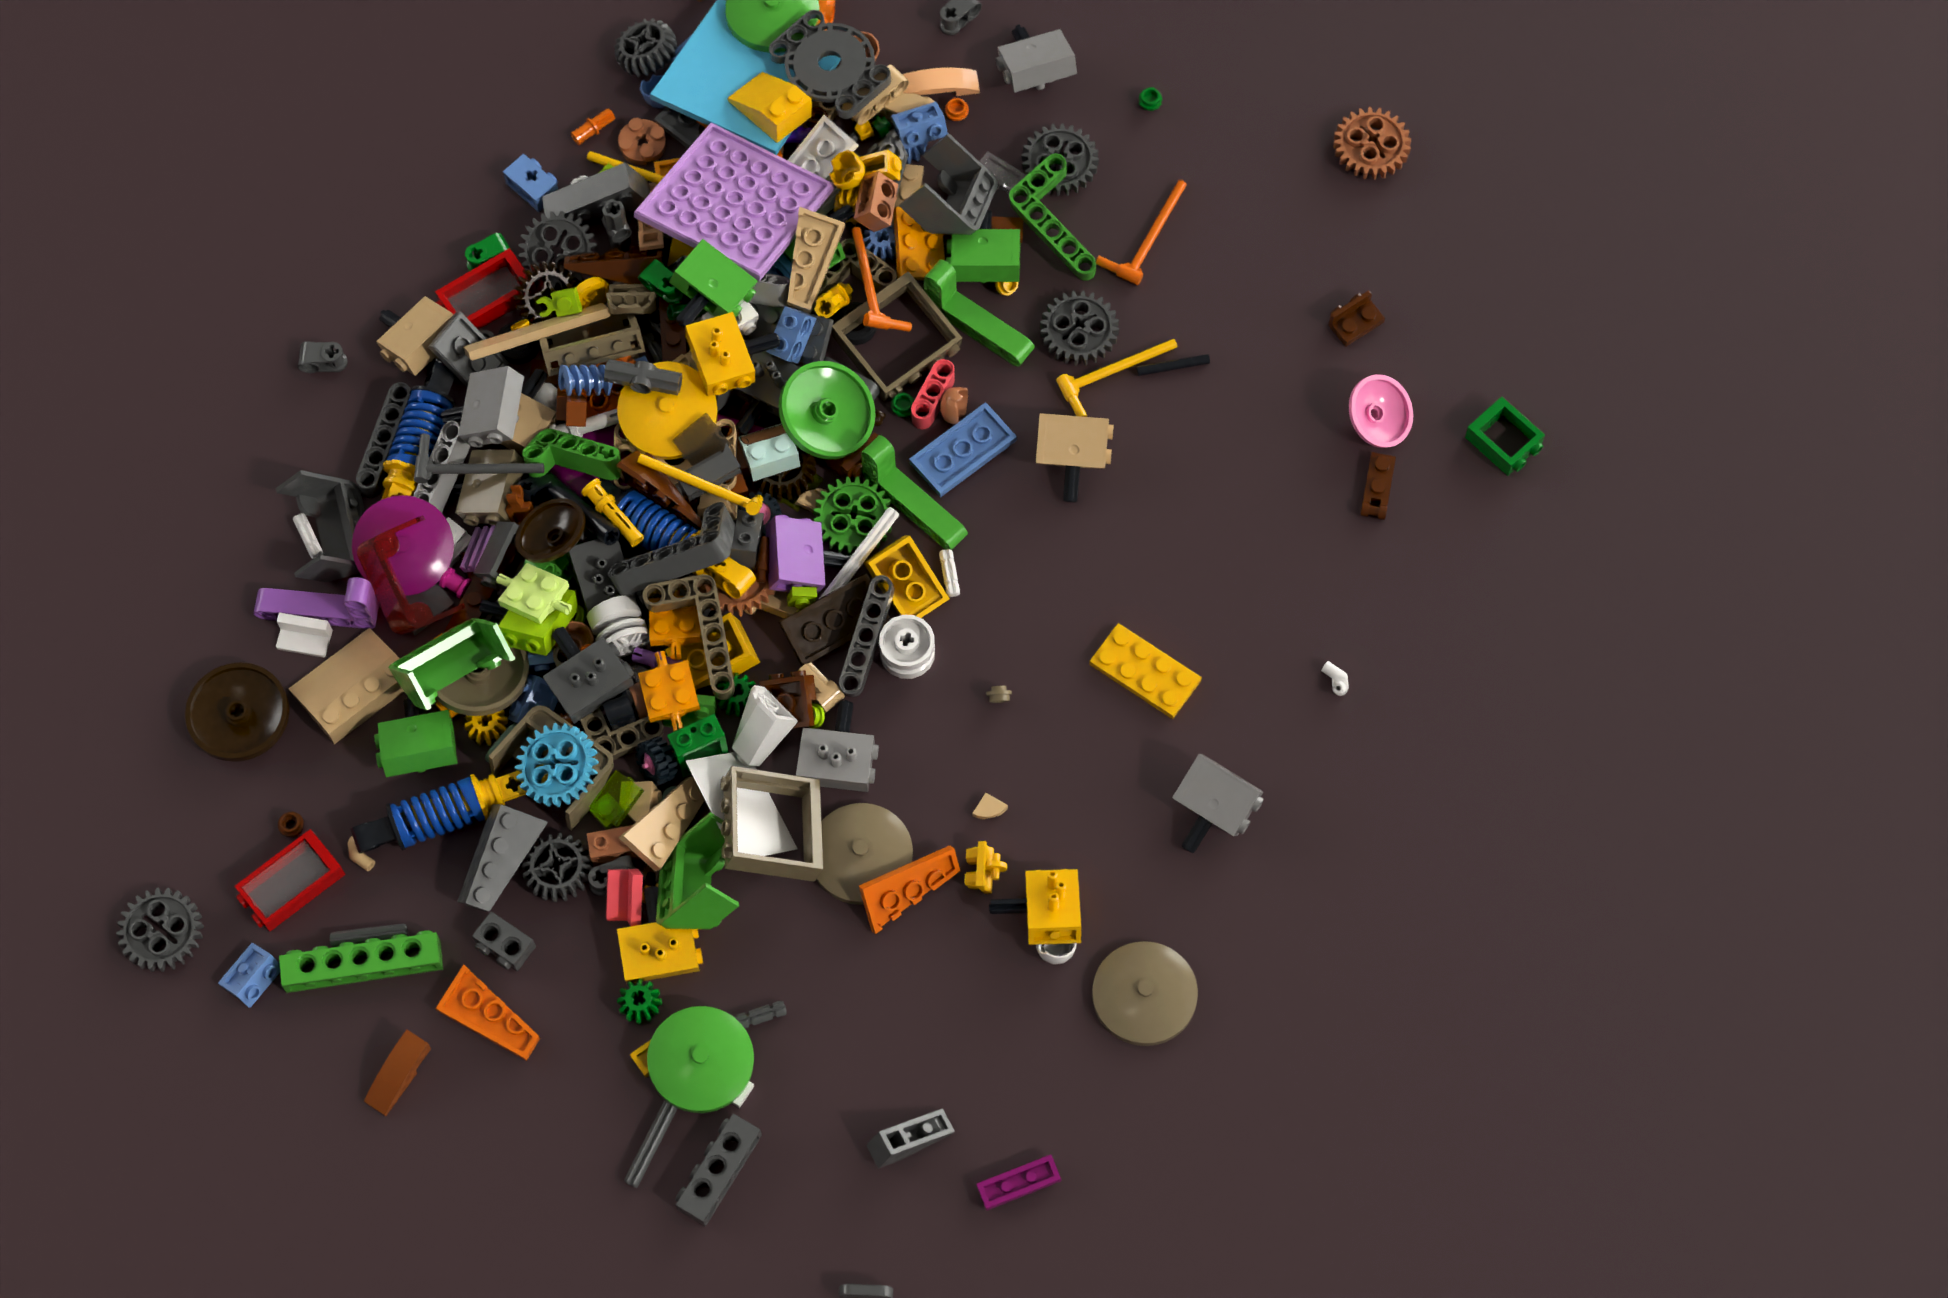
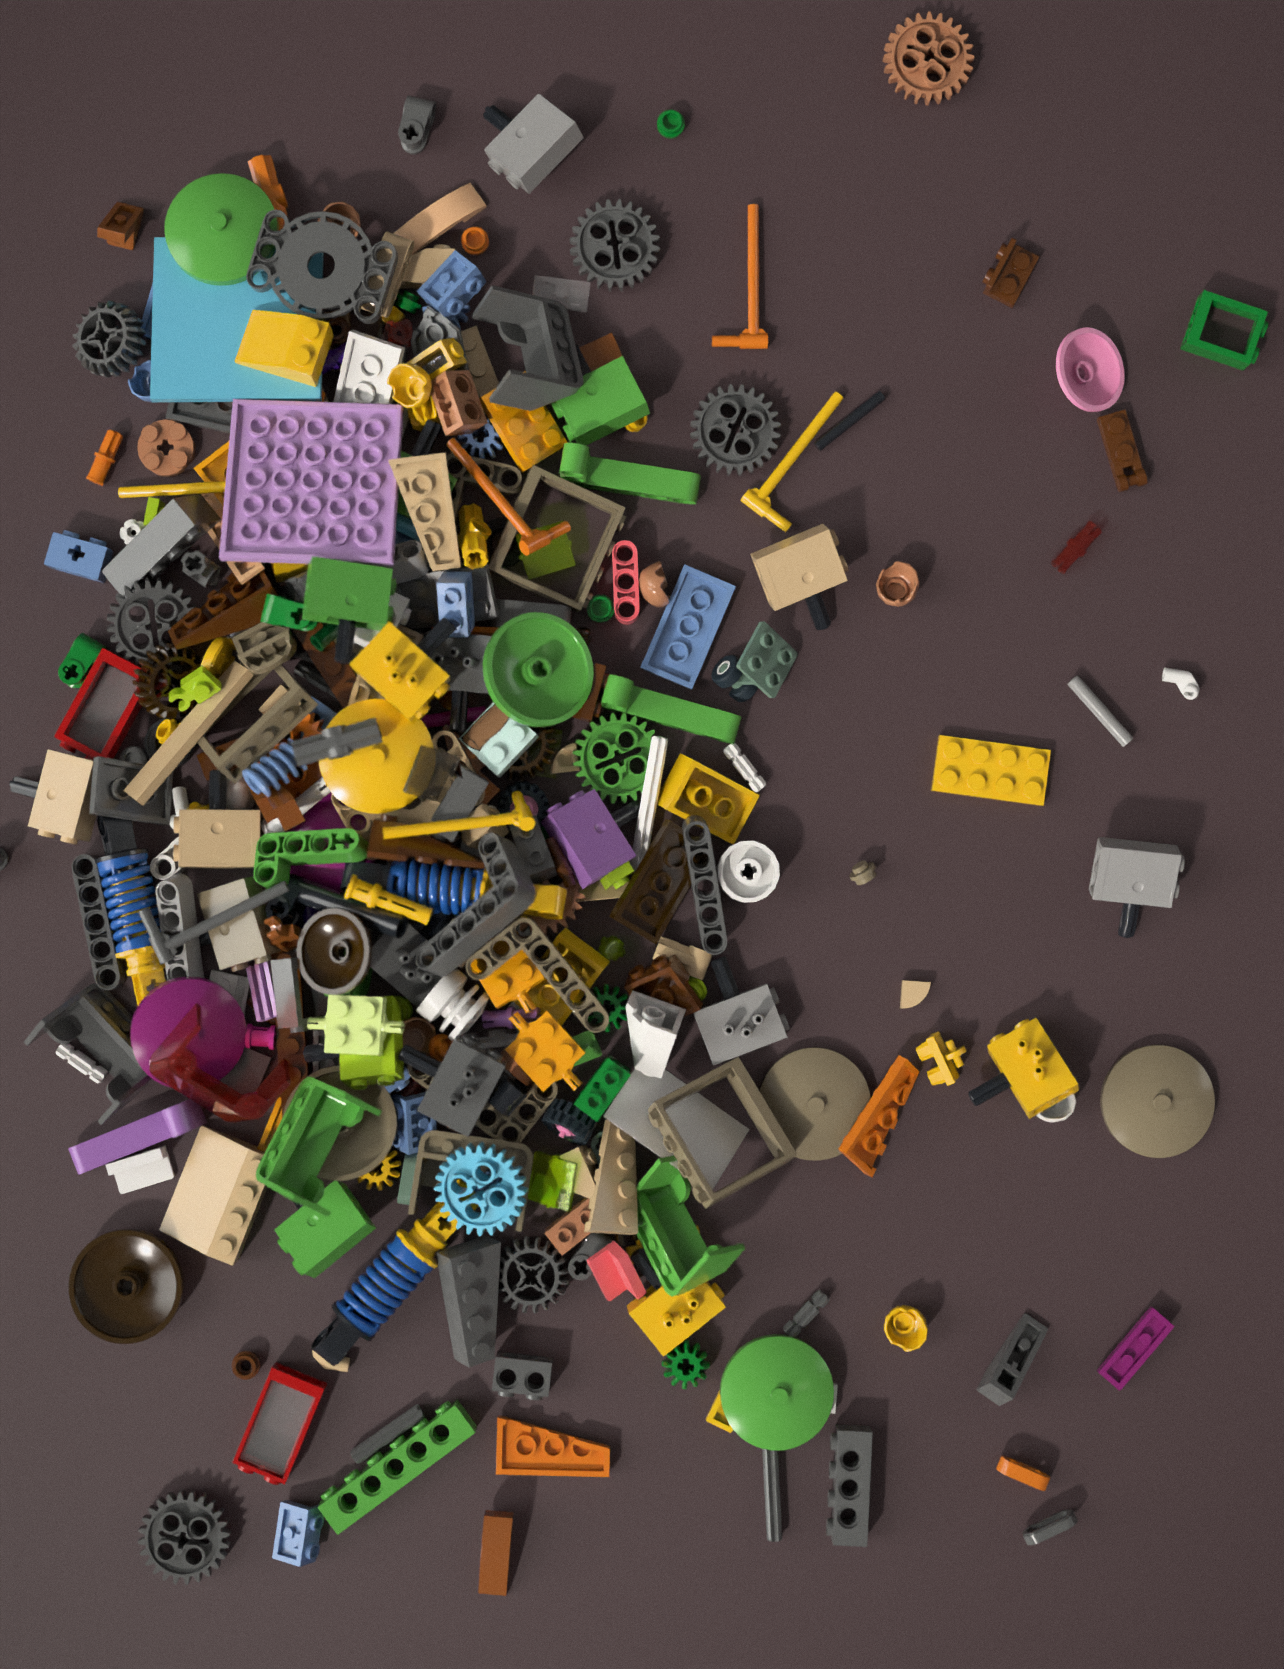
camera: 30 degrees left, 20 degrees up
(489, 407) = (194, 853): light grey piece -> none
(767, 652) = (612, 947): none -> clear neon green plate
(836, 1063) = (906, 1327): none -> yellow hair
(868, 140) = (404, 327): none -> clear red plate
(868, 1235) = (1023, 1473): none -> orange beam
(883, 343) = (549, 558): none -> clear neon green piece
(1007, 498) = (761, 665): none -> sand green plate
(1048, 220) = (642, 326): bright green beam -> none
(1145, 495) = (898, 584): none -> nougat hair
(1258, 668) = (1100, 711): none -> light grey piece
(1303, 538) = (1076, 547): none -> clear red pin

